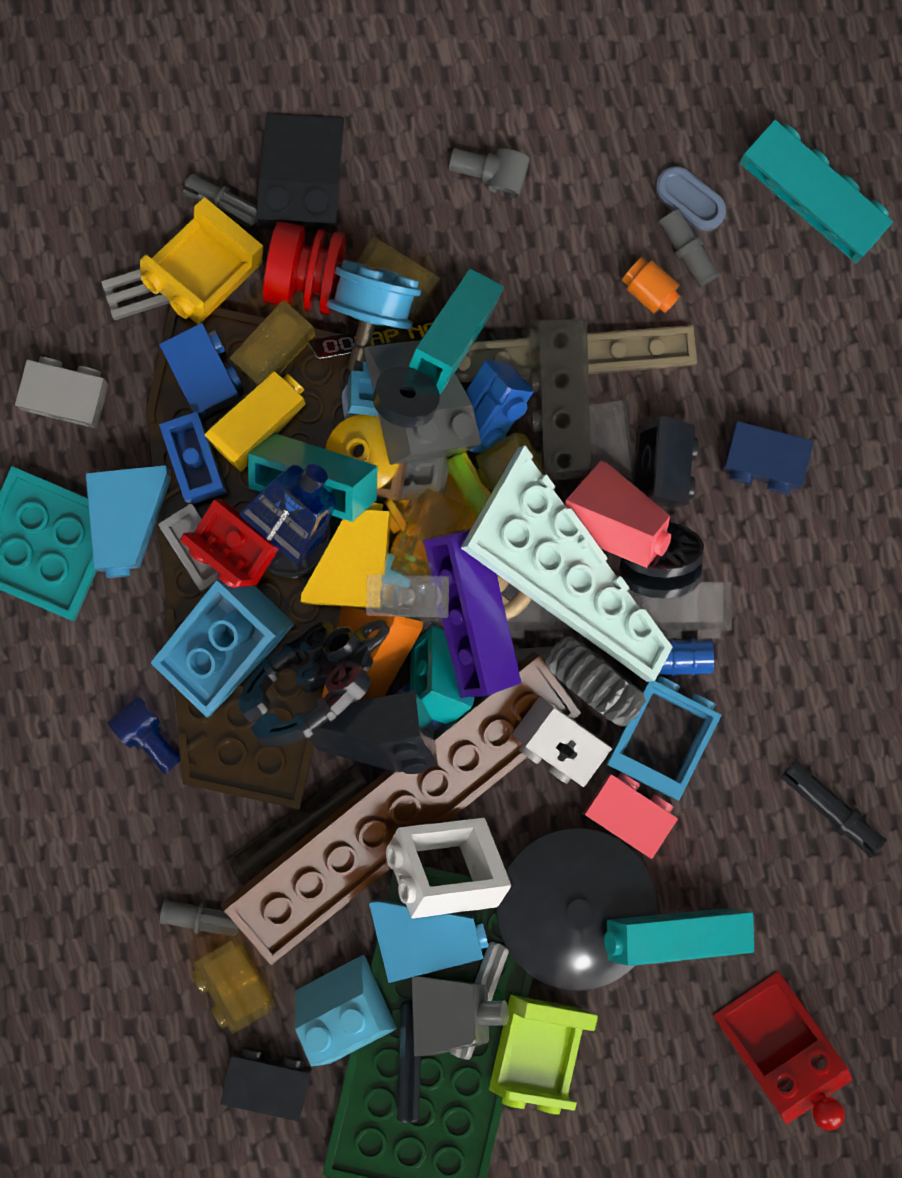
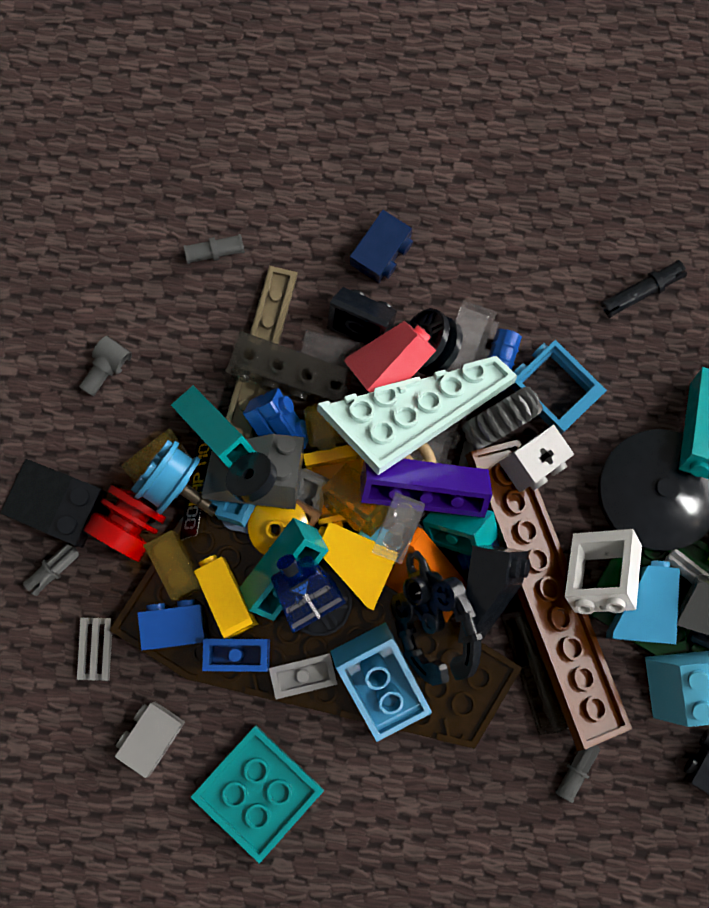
camera: 65 degrees left, 5 degrees down
(124, 515) = (259, 723): dark azure slope -> none
(140, 729) = (422, 767): clear blue pin -> none
(202, 263) = (92, 598): yellow panel -> none
(230, 546) = (313, 649): red bracket -> none
(233, 985) = (637, 763): clear yellow brick -> none
(467, 484) = (332, 458): clear neon green tile -> none
(631, 815) = (604, 429): coral brick -> none
(651, 286) = (231, 283): orange brick -> none
(697, 201) = (184, 231): sand blue tile -> none
(816, 191) = (207, 148): teal brick -> none

